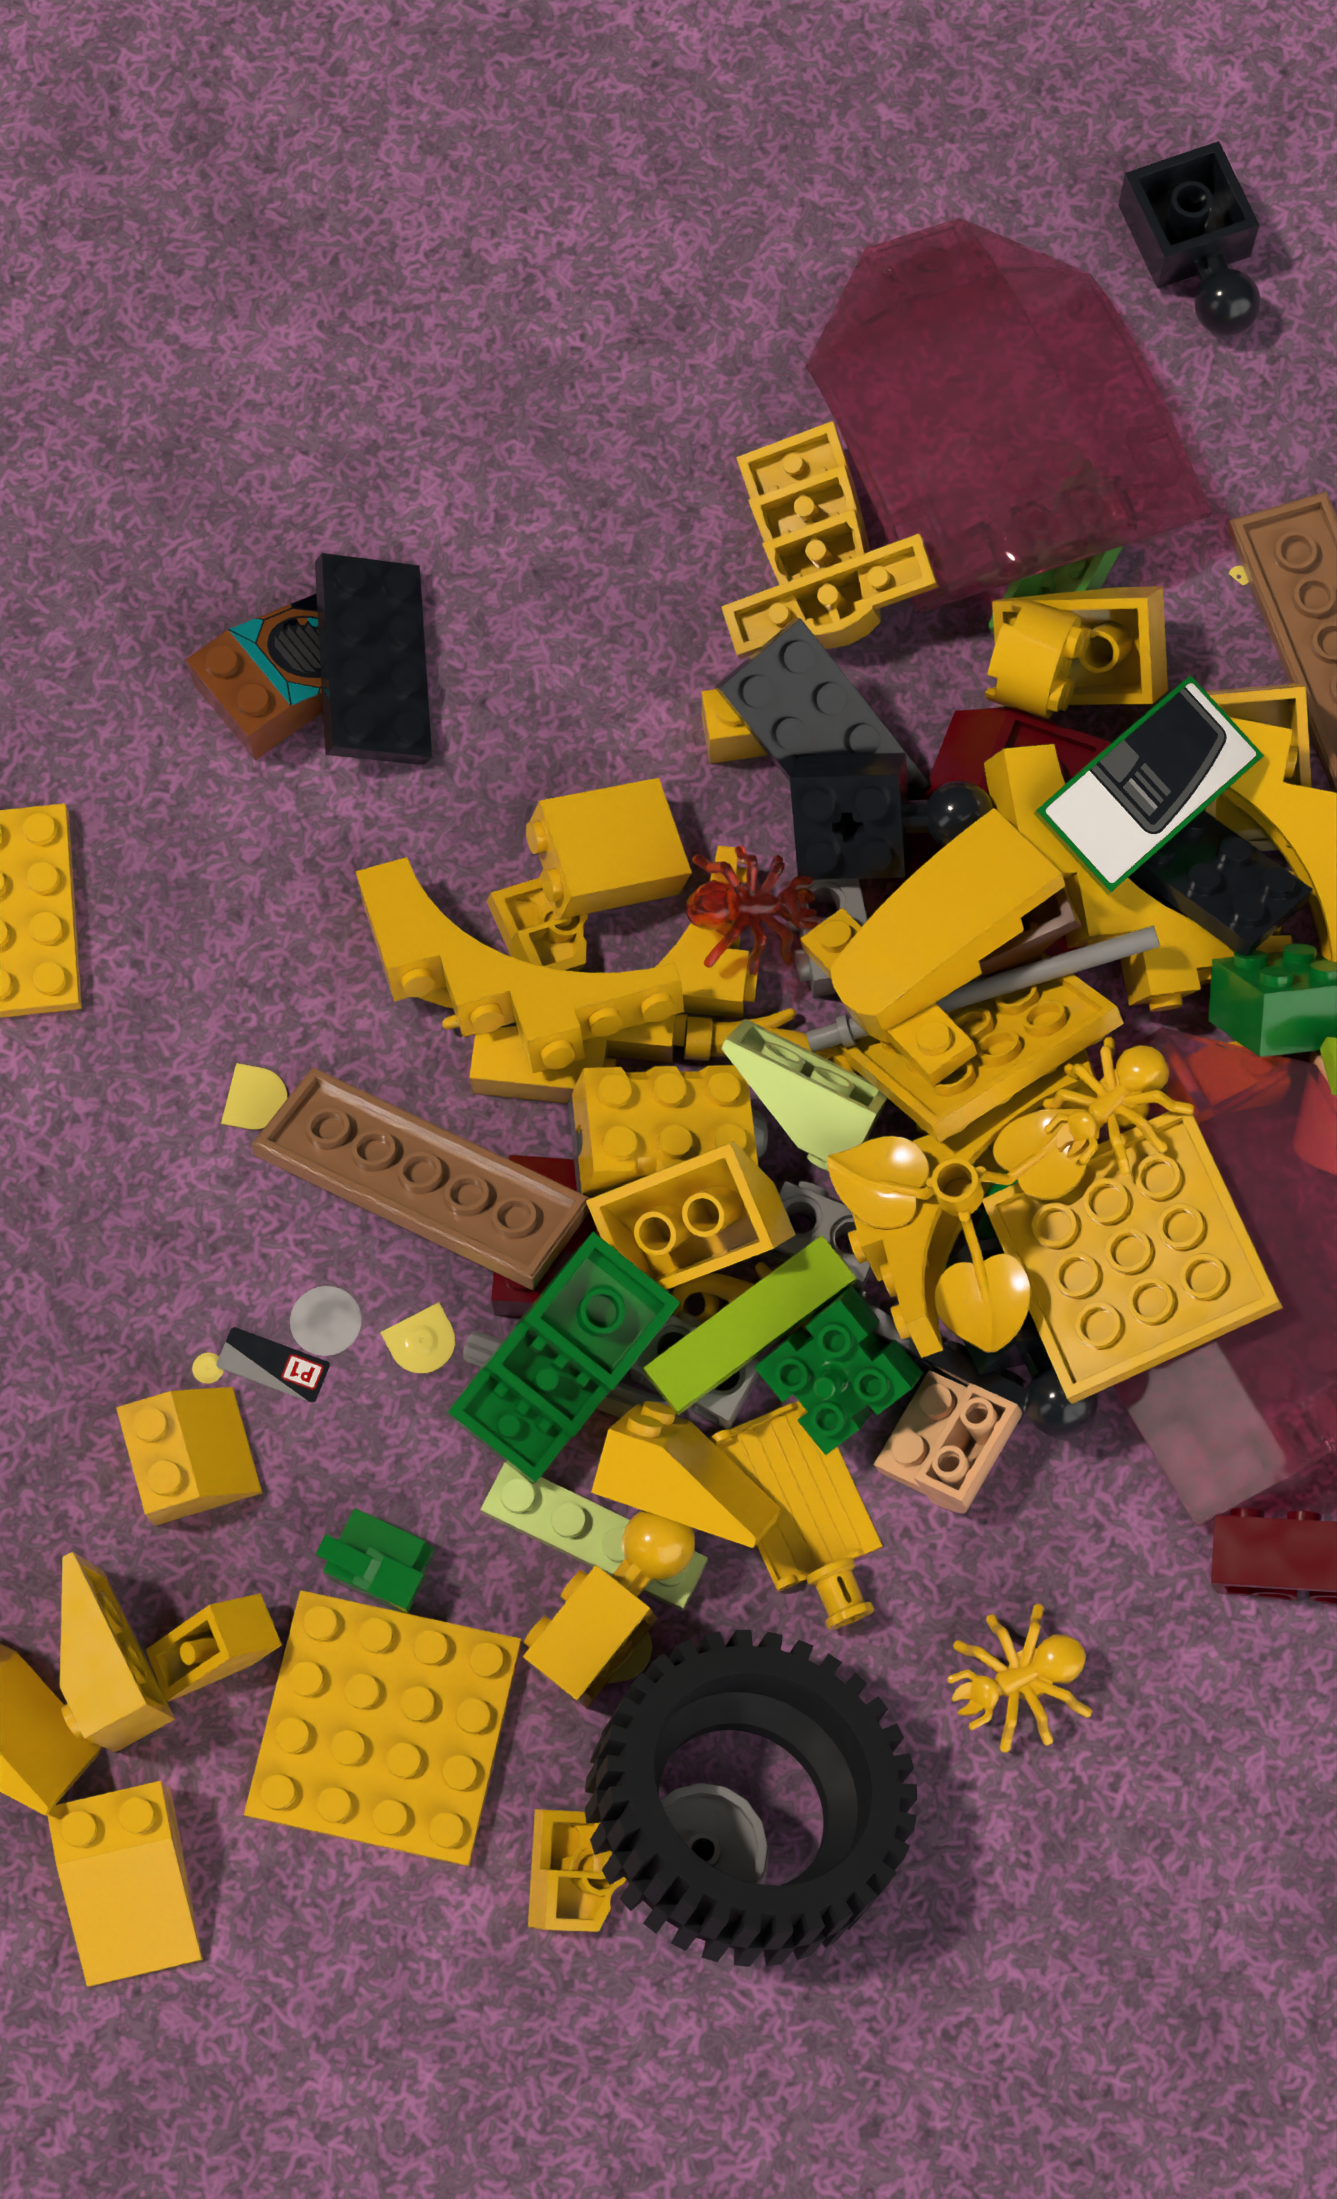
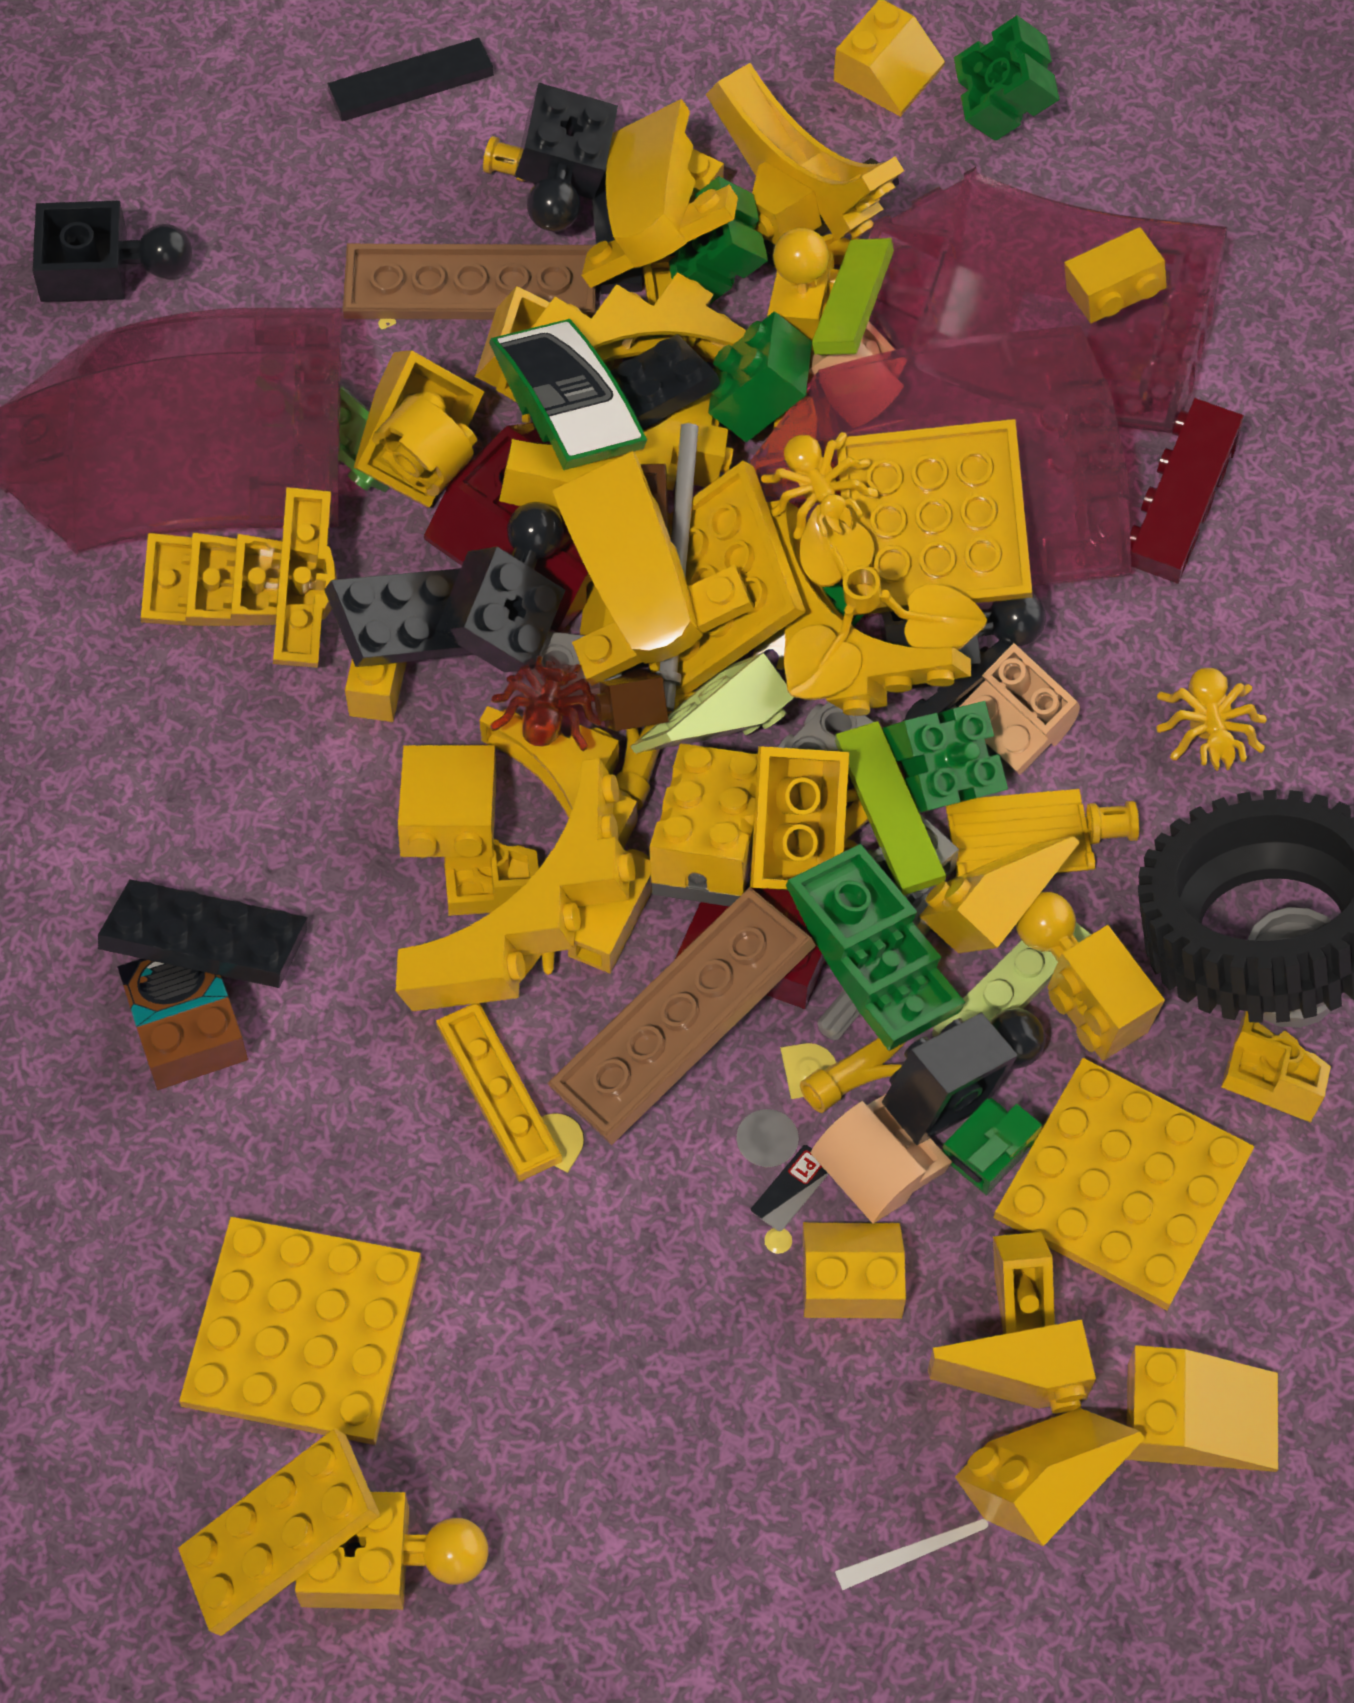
camera: 75 degrees left, 10 degrees down
(290, 1021) = (499, 1091): none -> yellow tile
(327, 1445) = (877, 1159): none -> light nougat brick
(418, 1380) = (826, 1086): none -> yellow plant
(450, 1502) = (960, 1069): none -> black brick
(787, 997) = (632, 701): none -> reddish brown arch

